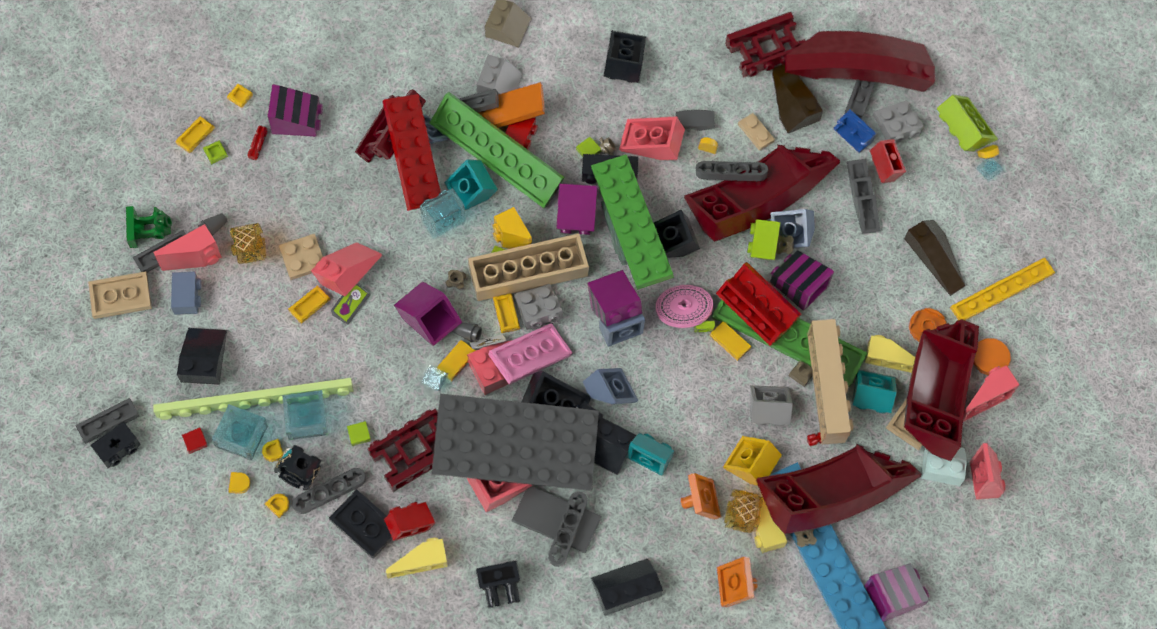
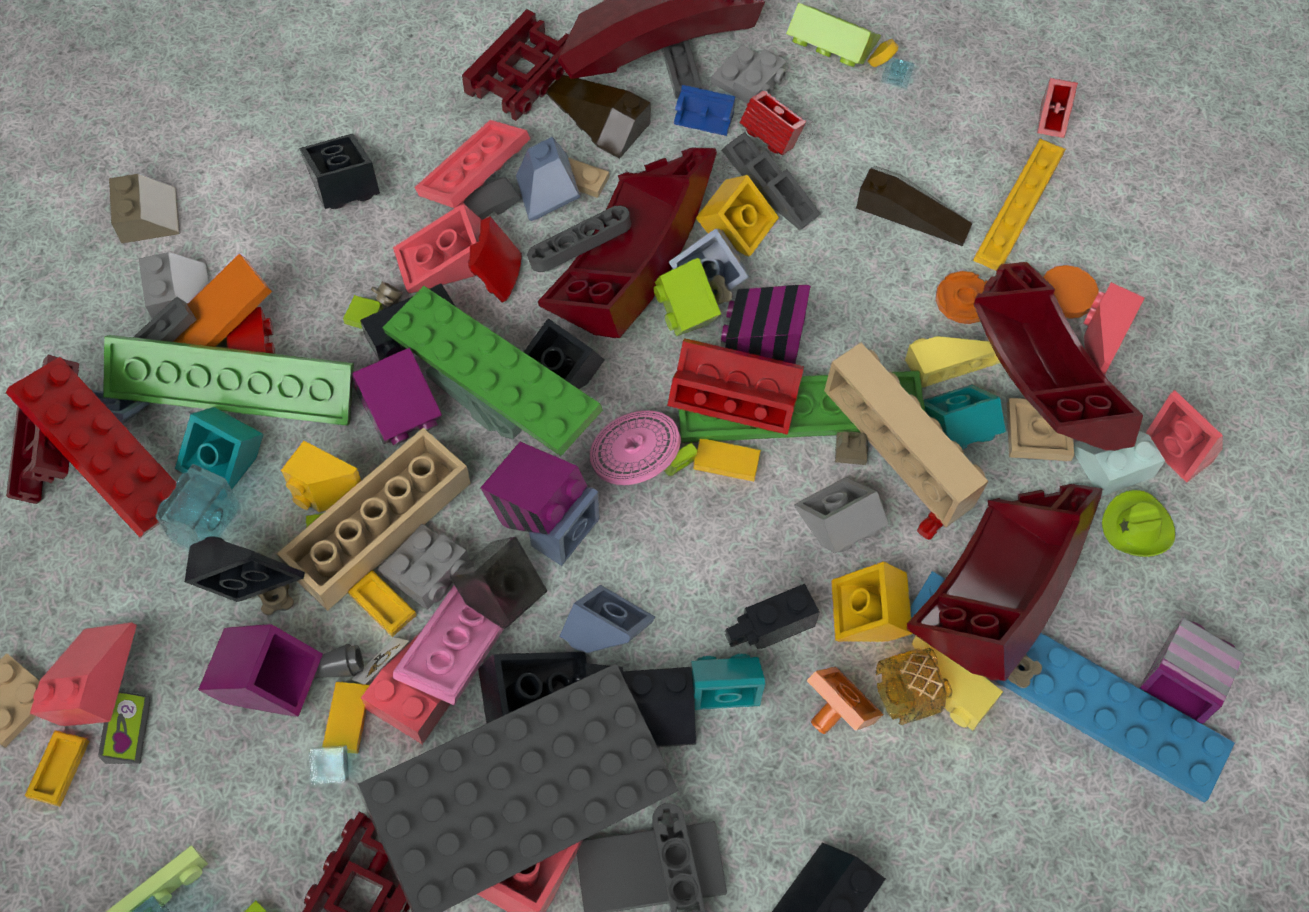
camera: 30 degrees left, 5 degrees down
(443, 255) = (235, 570): none -> black slope
(569, 337) = (499, 582): none -> clear smoke slope
(675, 159) = (495, 260): none -> red slope
(696, 437) = (775, 619): none -> black hinge
(700, 93) = (472, 163): none -> coral plate
(708, 144) = (526, 223): yellow tile -> none
(735, 125) = (546, 179): none -> sand blue slope
(736, 582) = (975, 797): orange tile -> none
(830, 206) = (740, 213): none -> yellow slope
(929, 504) = (1138, 524): none -> lime hat
(1067, 244) = (1056, 107): none -> slope

